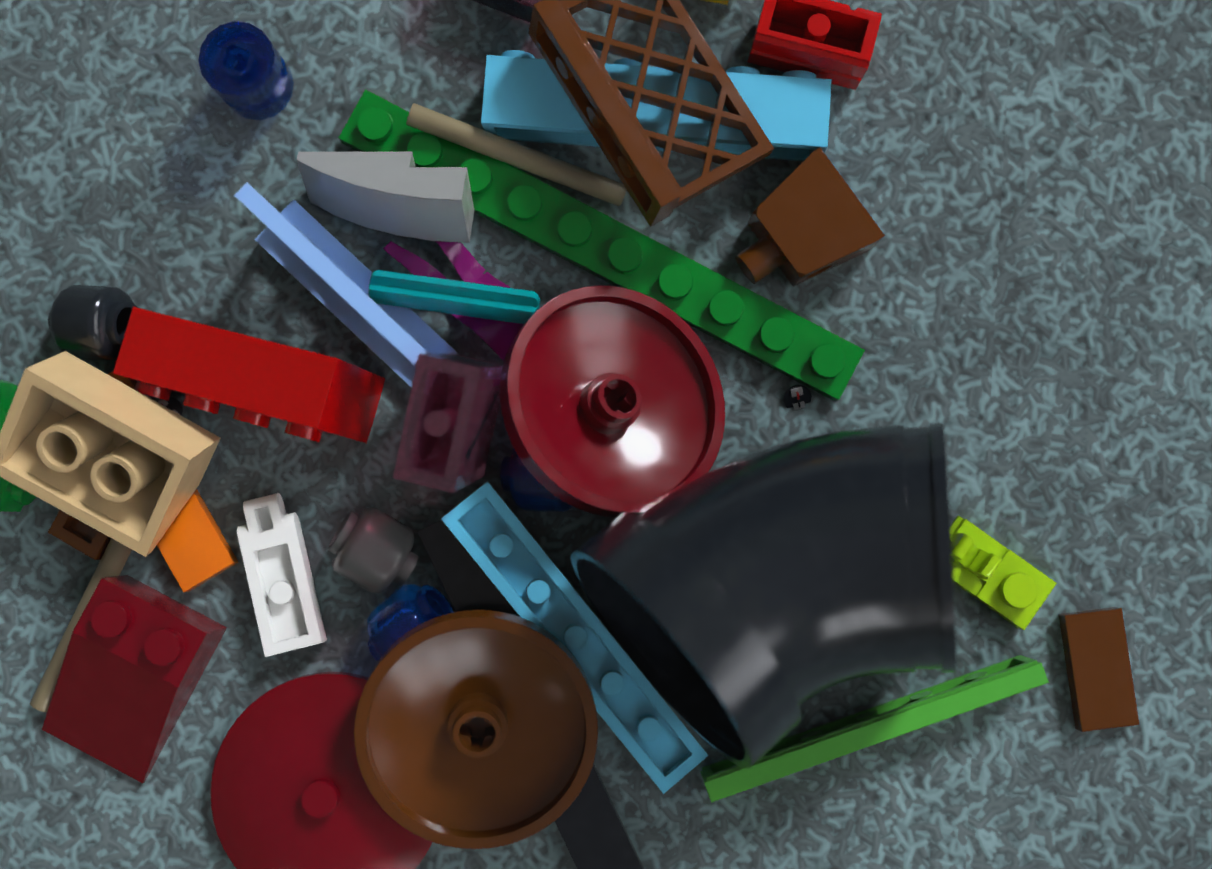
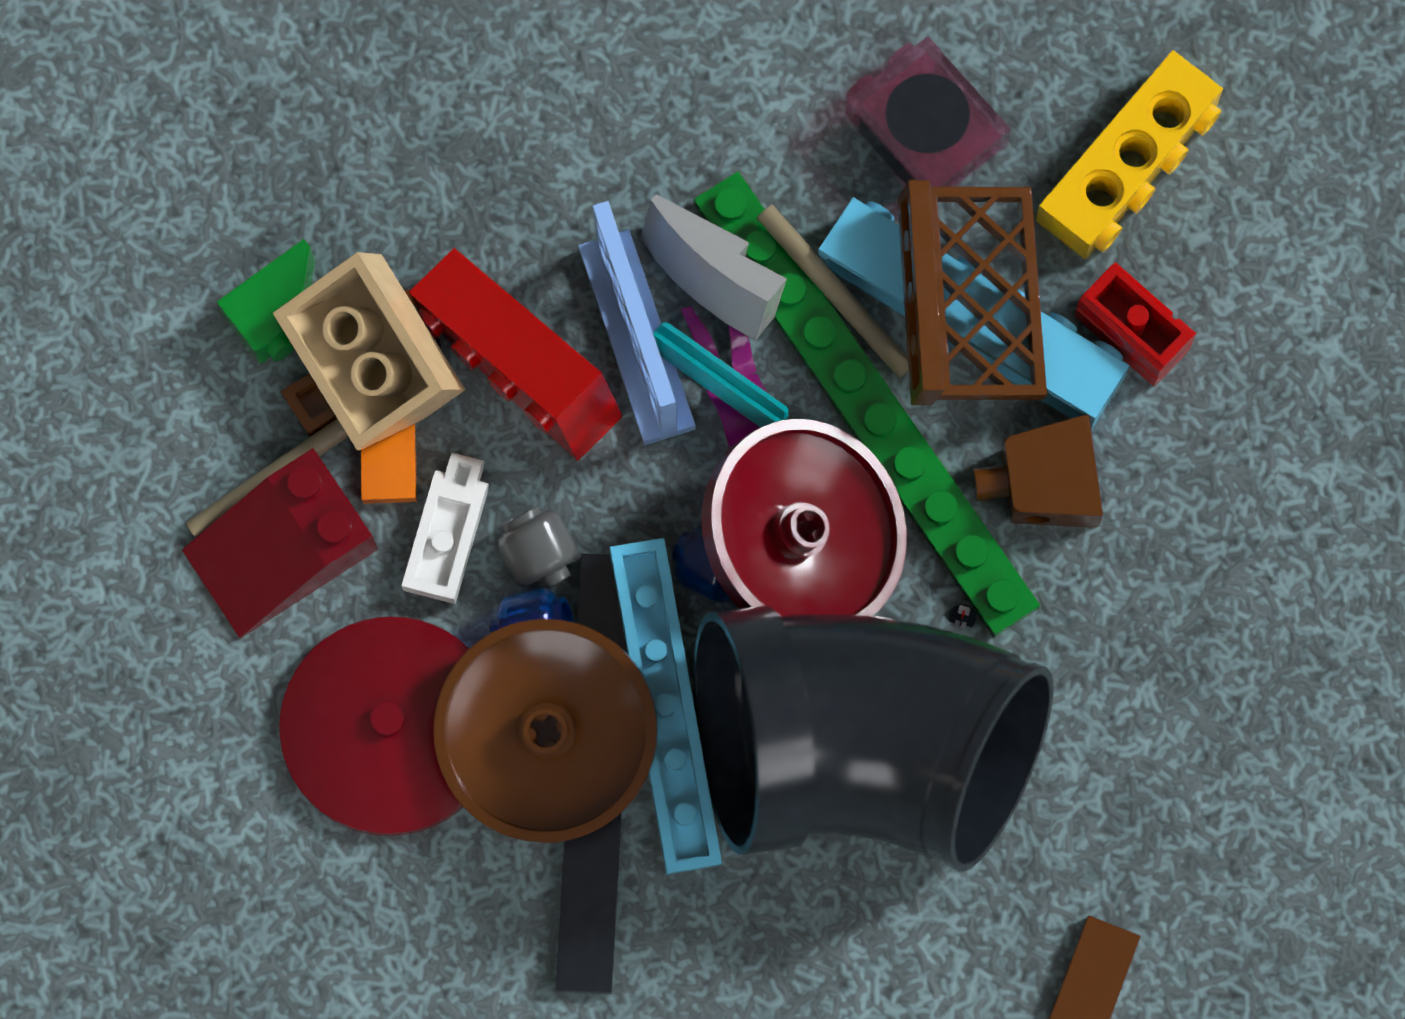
camera: 30 degrees right, 10 degrees down
(90, 321) = (411, 241): black head -> none
(246, 70) = (651, 120): clear blue wheel -> none
(449, 421) = (663, 469): clear pink brick -> none
(877, 725) = (871, 914): bright green tile -> none
(996, 574) = (1048, 850): lime plate -> none

